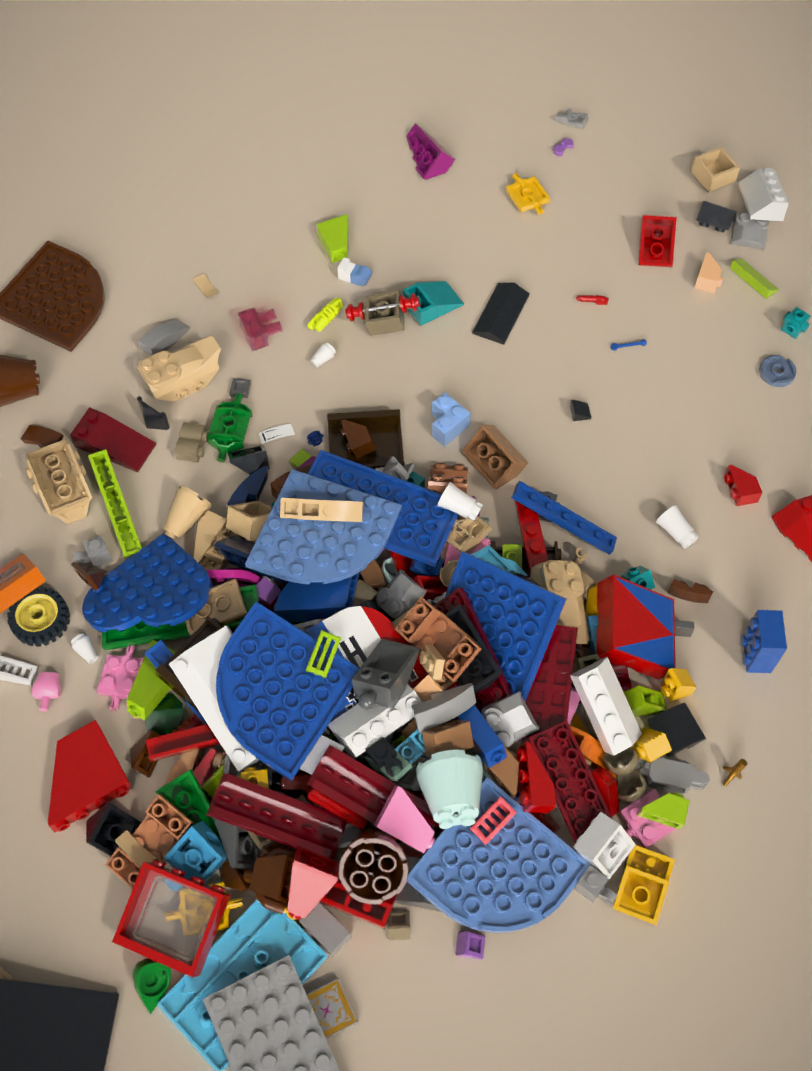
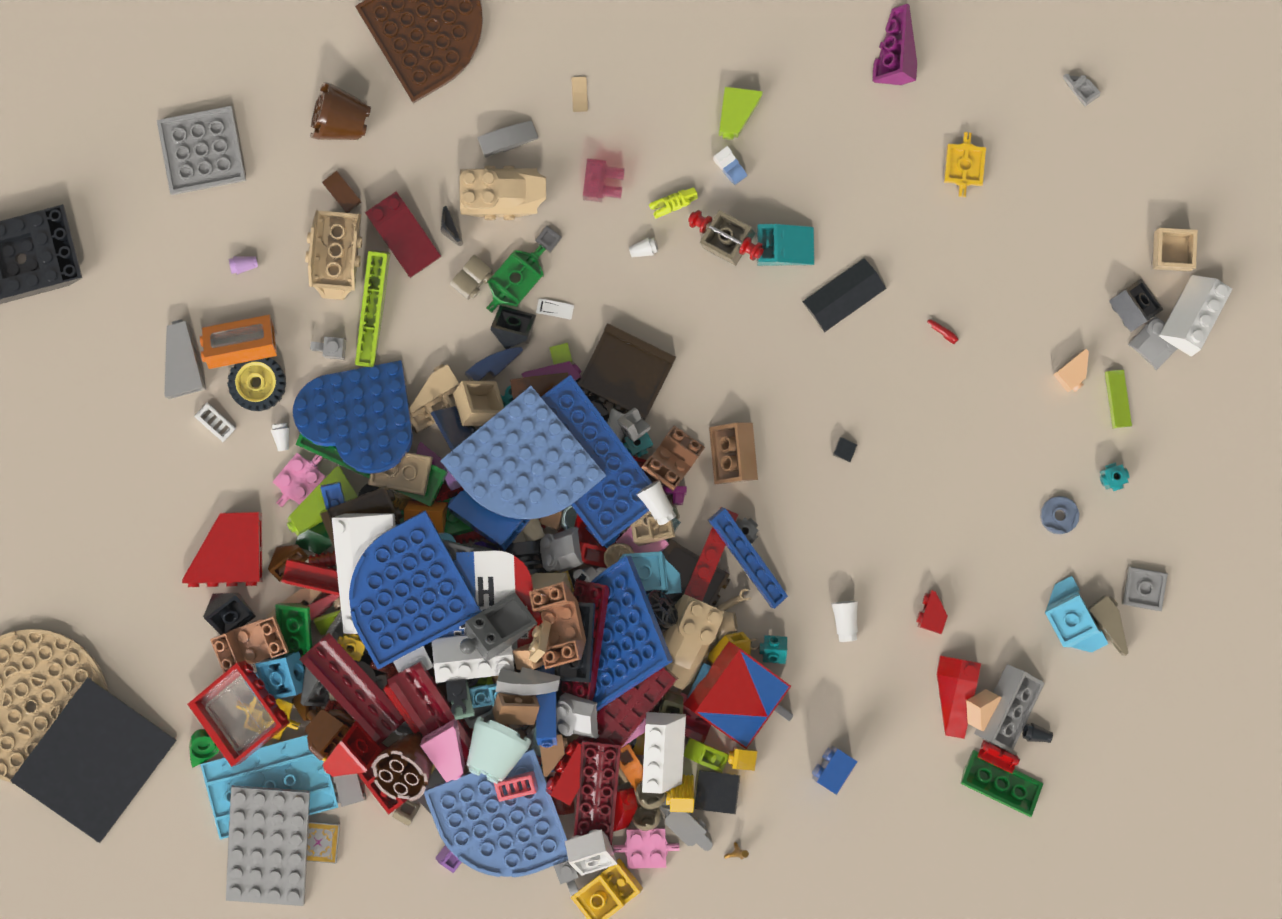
camera: 30 degrees right, 25 degrees up
(46, 687) = (234, 455): bright pink piece -> none
(90, 575) = (317, 370): reddish brown slope -> none
(134, 849) = (237, 642): tan sticker -> none
(184, 512) = (427, 353): tan cone -> none
(234, 573) = (431, 443): dark pink plate -> none
(315, 438) = (585, 338): clear blue plate -> none
(317, 671) = (468, 575): lime tile -> none
(321, 509) = (528, 453): tan slope -> none
(359, 438) = (621, 365): reddish brown slope -> none
(451, 419) = (721, 392): light blue brick -> none
(513, 552) = (685, 560): lime bracket -> none
(559, 149) = (1039, 121): medium lavender piece -> none
(614, 346) = (926, 397): blue hinge -> none
(657, 241) = (1051, 303): red slope -> none
(667, 810) = (658, 853): lime slope -> none
(698, 593) = (818, 688): reddish brown slope -> none

